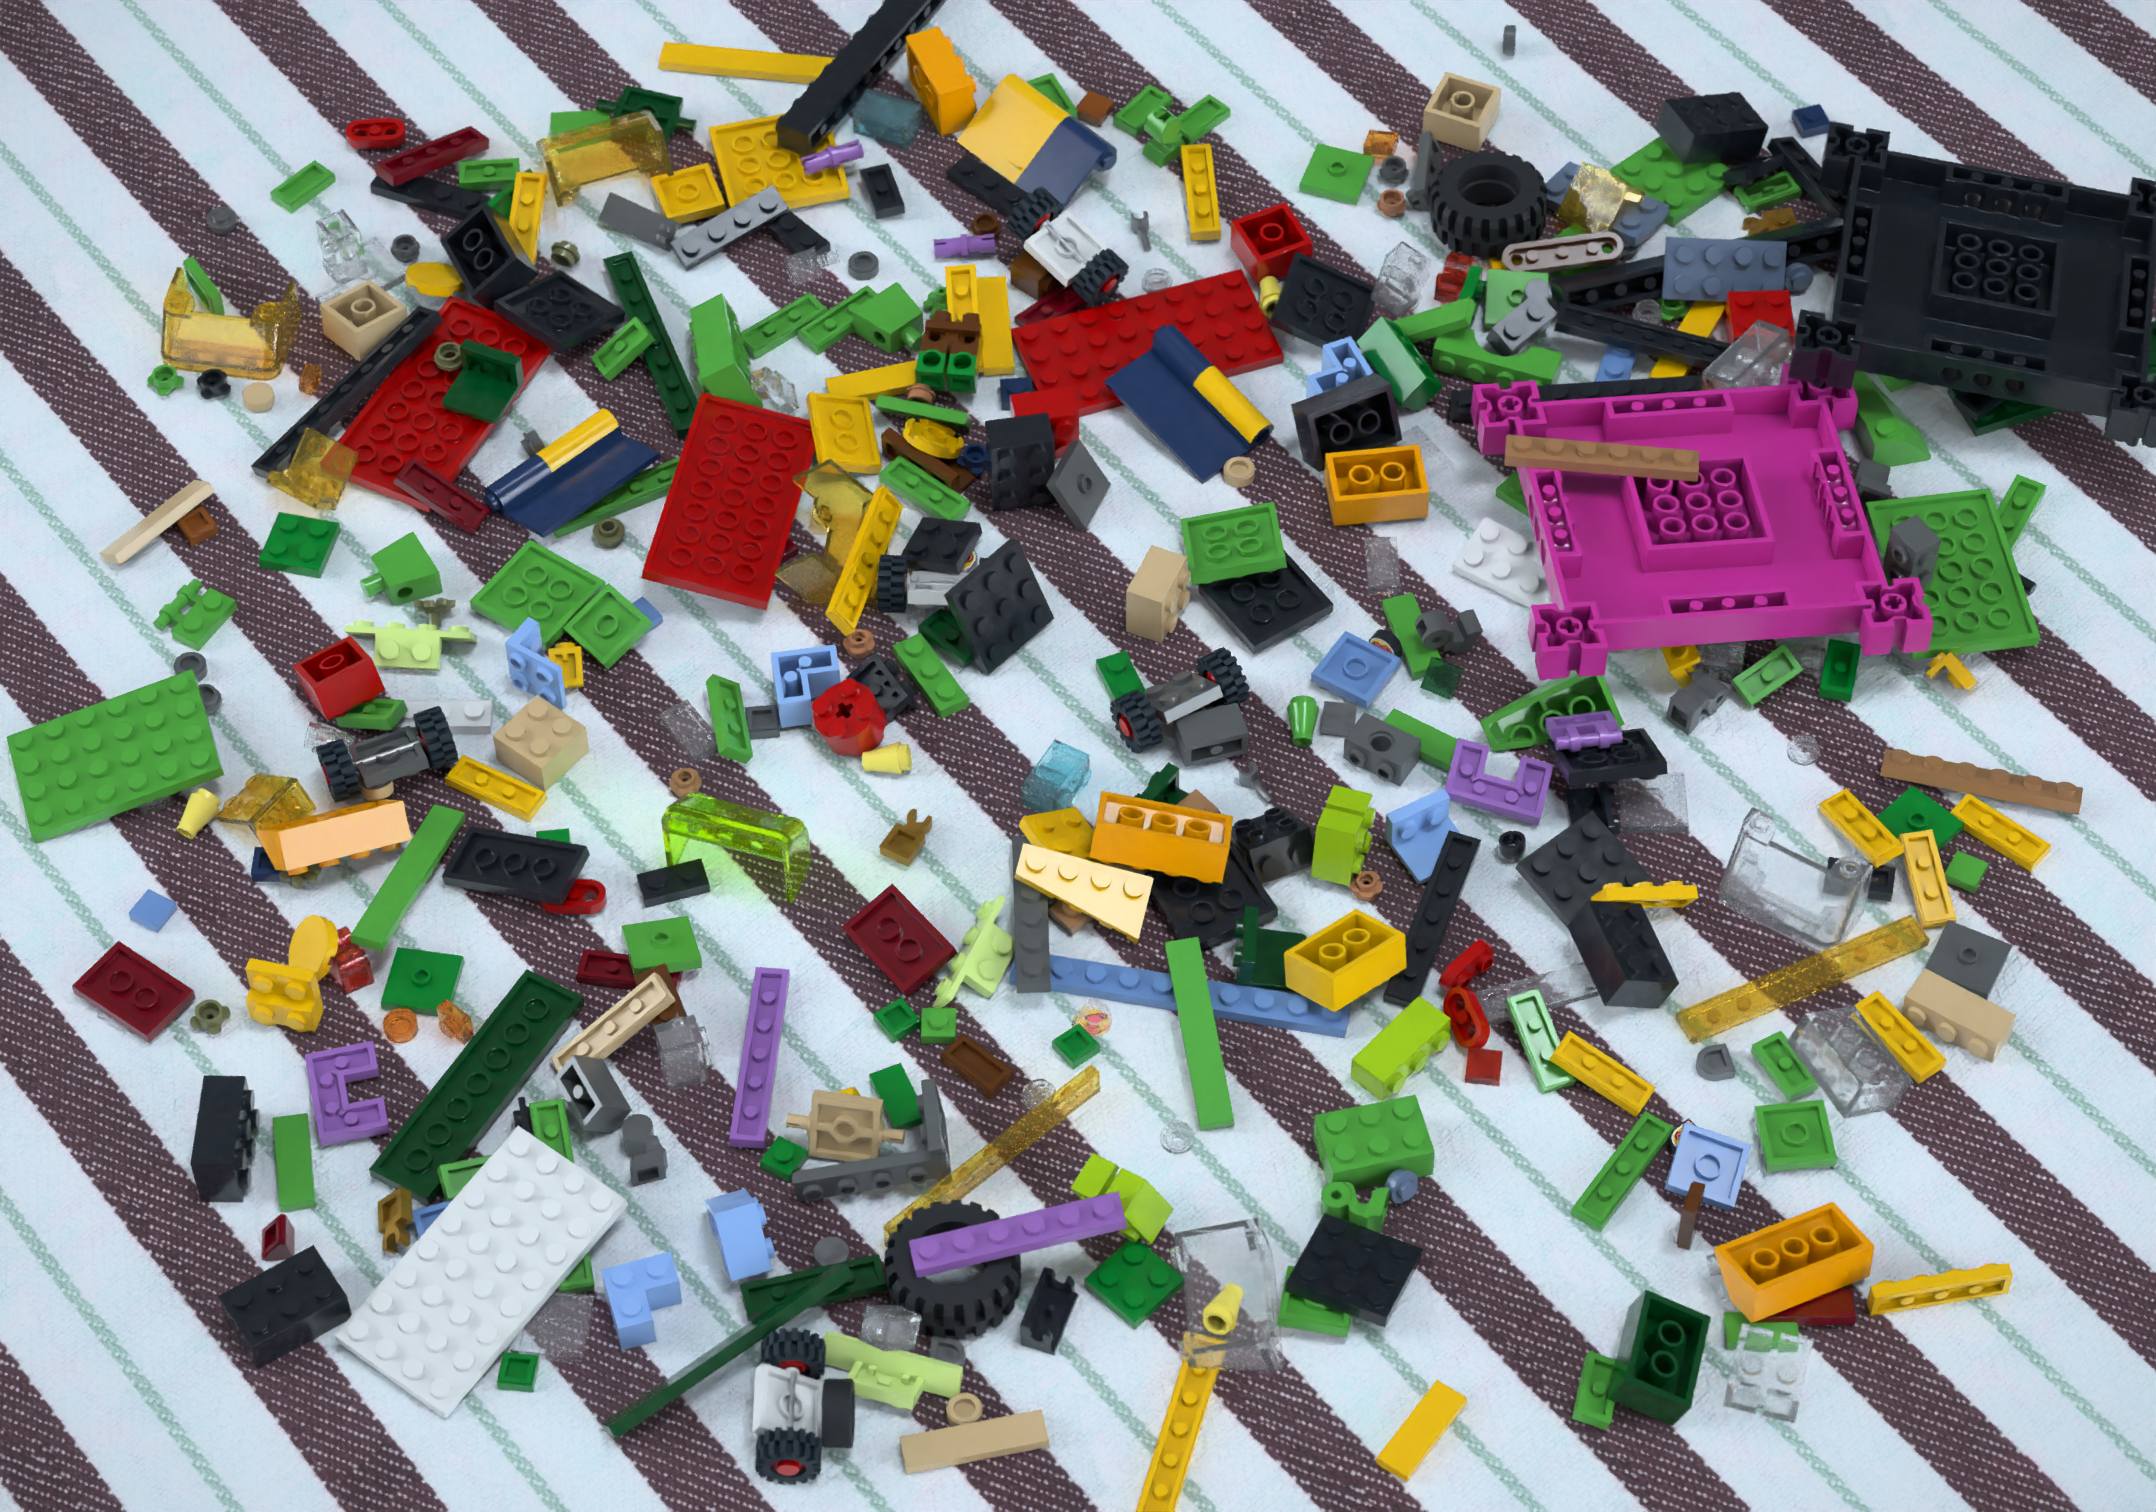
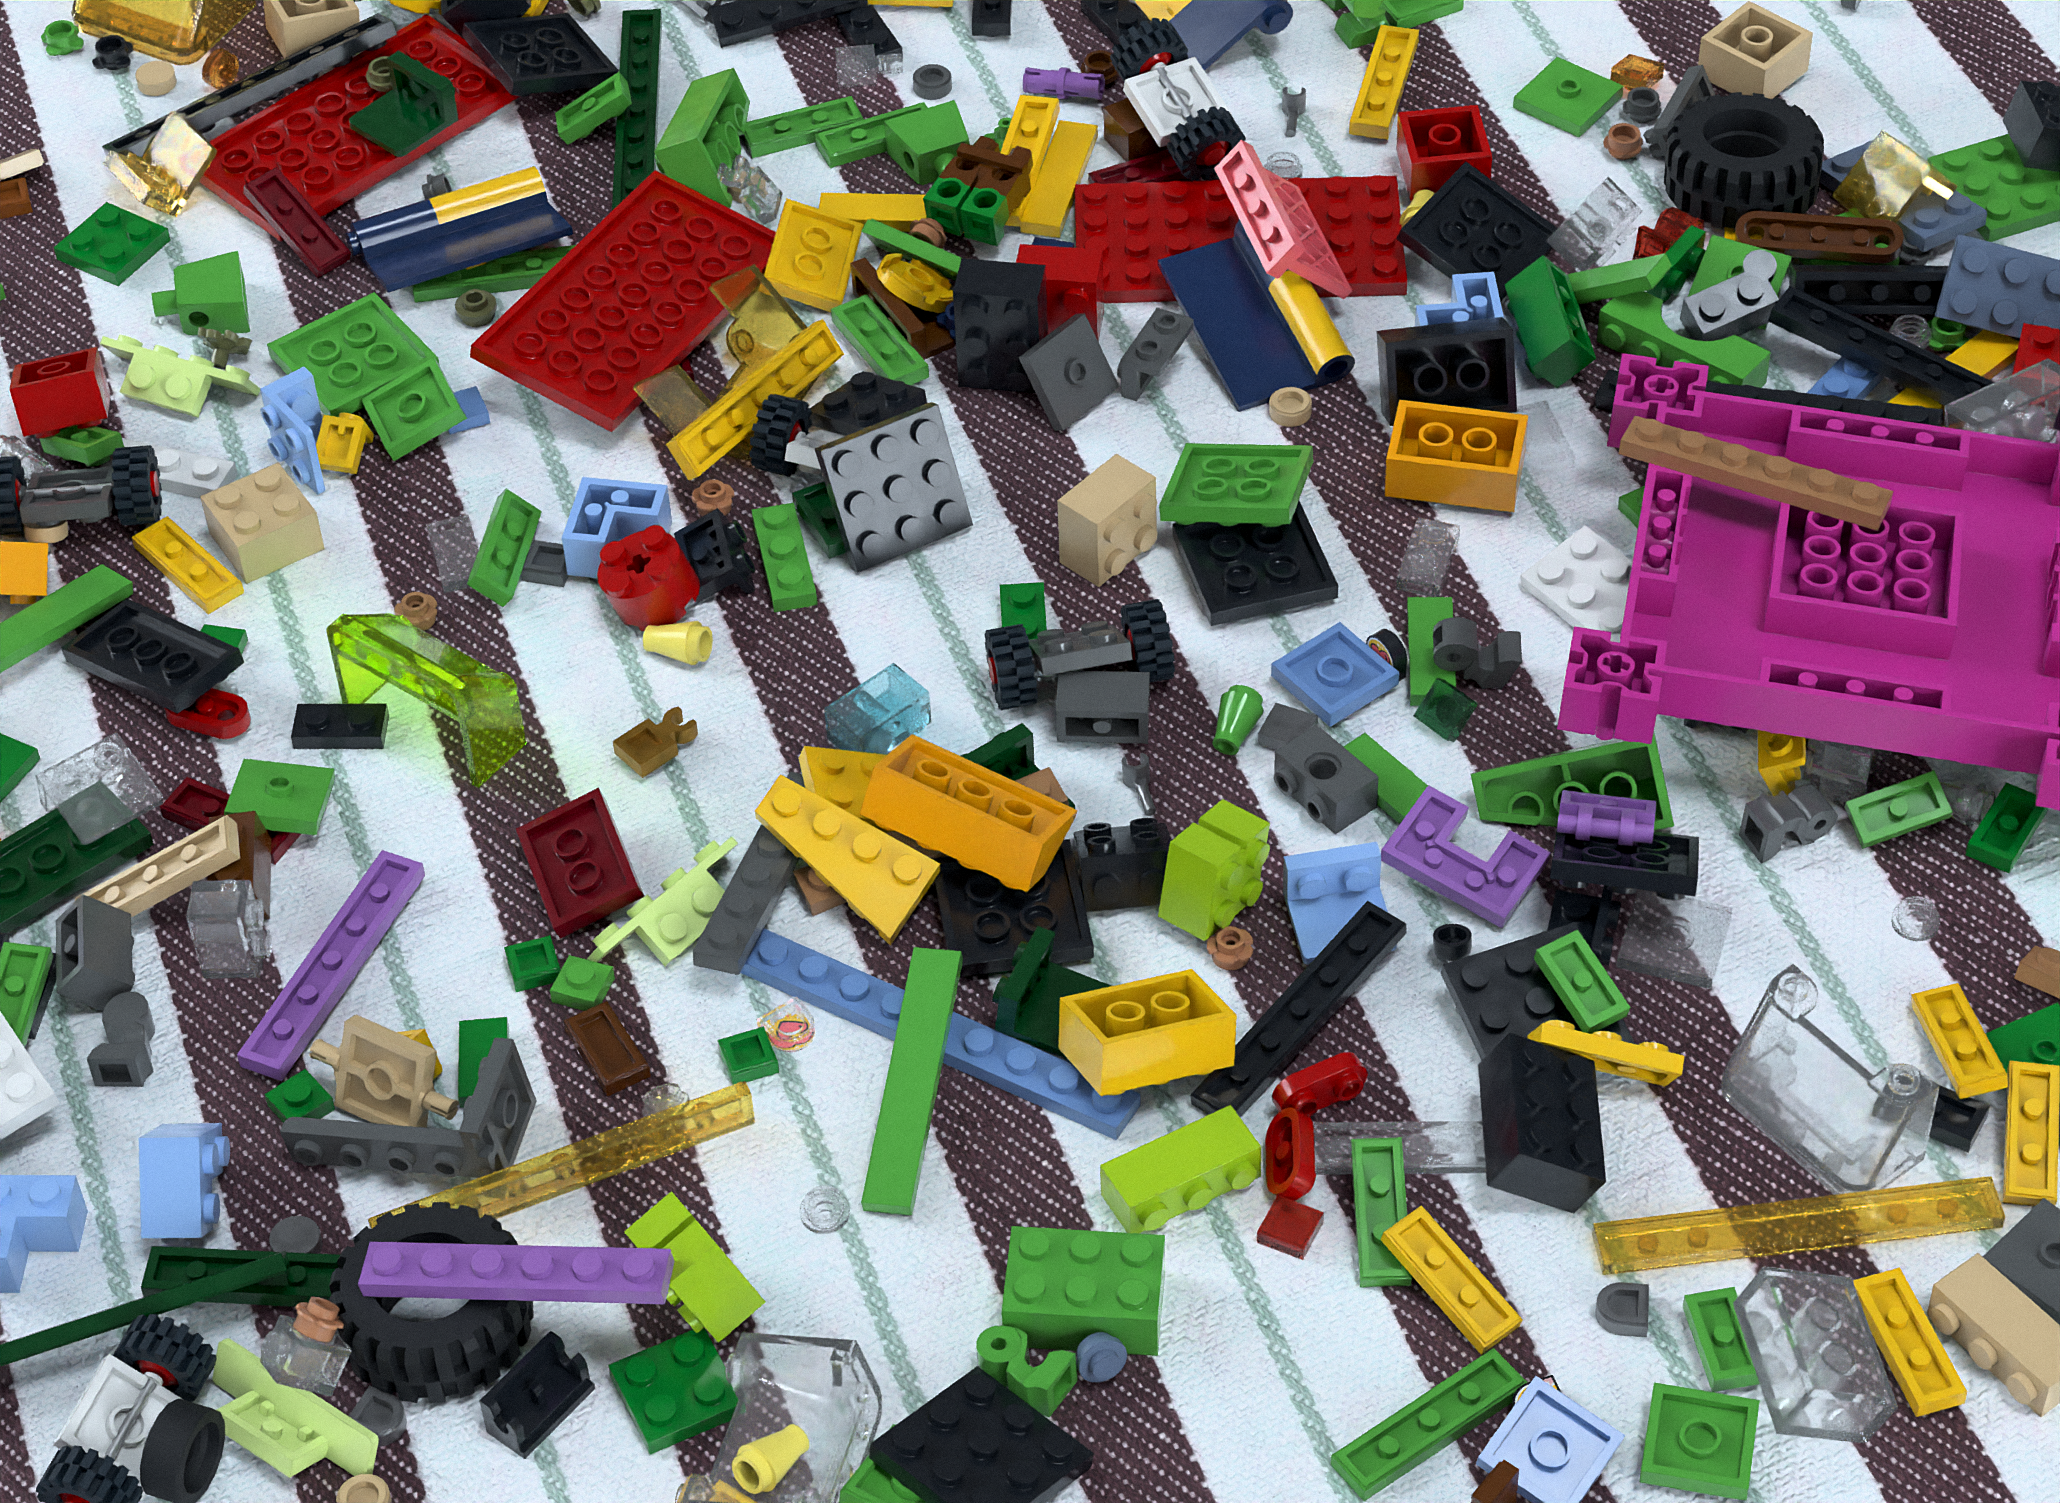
camera: 20 degrees right, 5 degrees down
(532, 975) = (98, 789): none -> clear bracket
(895, 1301) = (317, 1319): none -> nougat plate
(1131, 452) = (1152, 351): none -> dark grey bracket
(1184, 332) = (1279, 221): none -> coral fence
(1614, 852) = (1581, 982): none -> bright green plate

